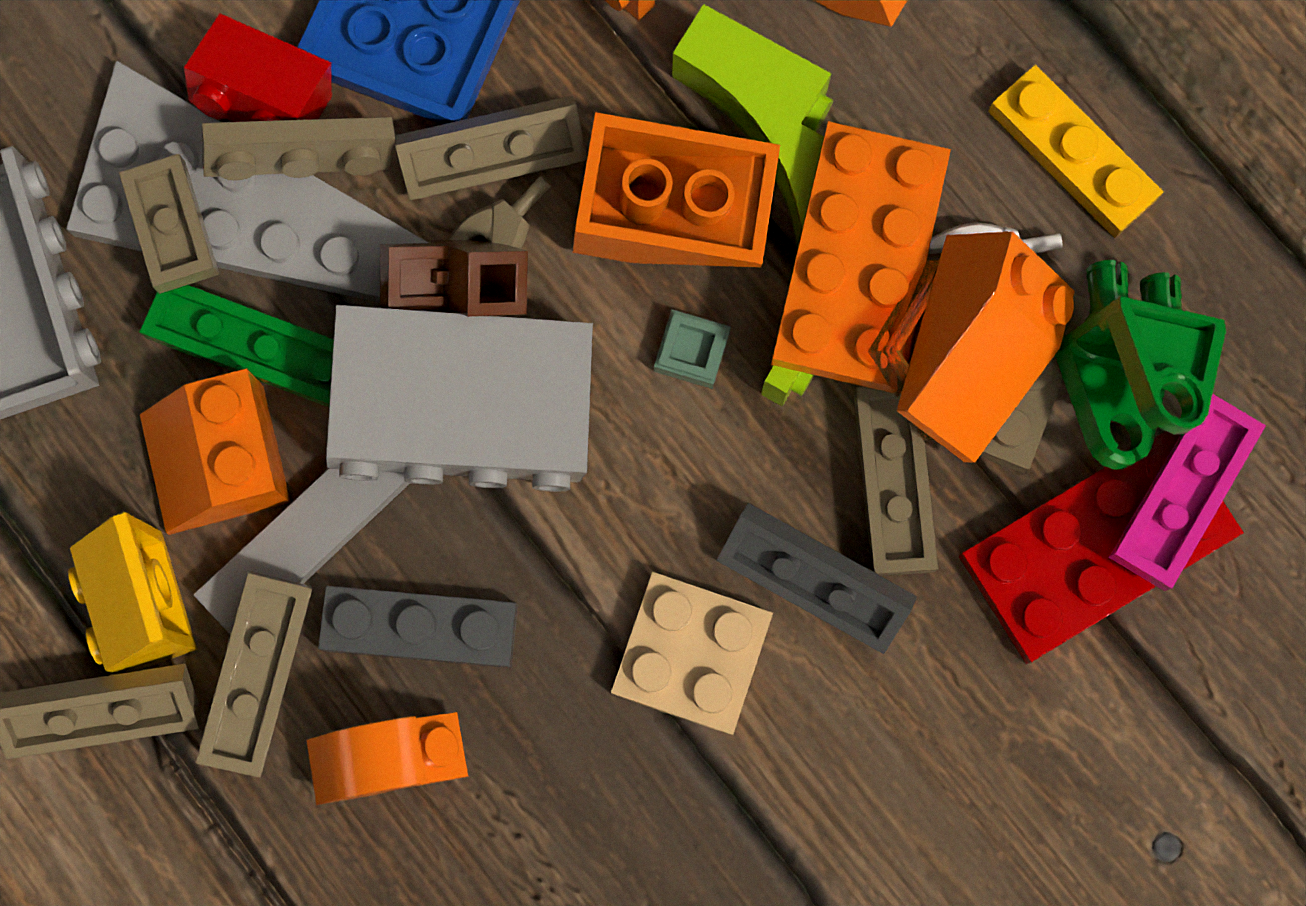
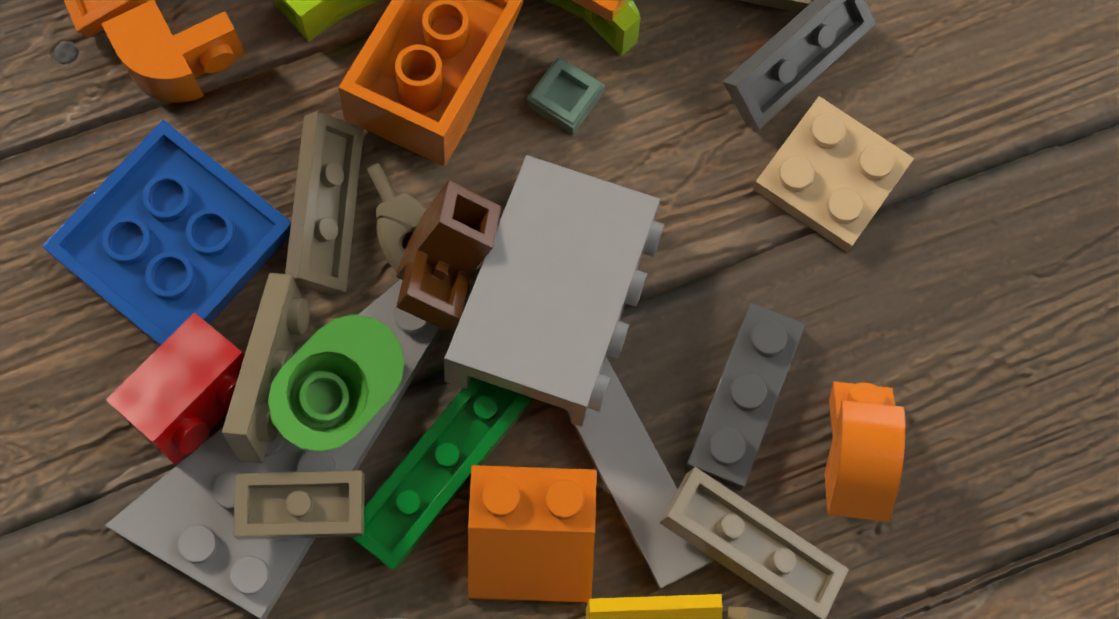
camera: 75 degrees left, 5 degrees down
(285, 212) = (336, 383): none -> bright green piece

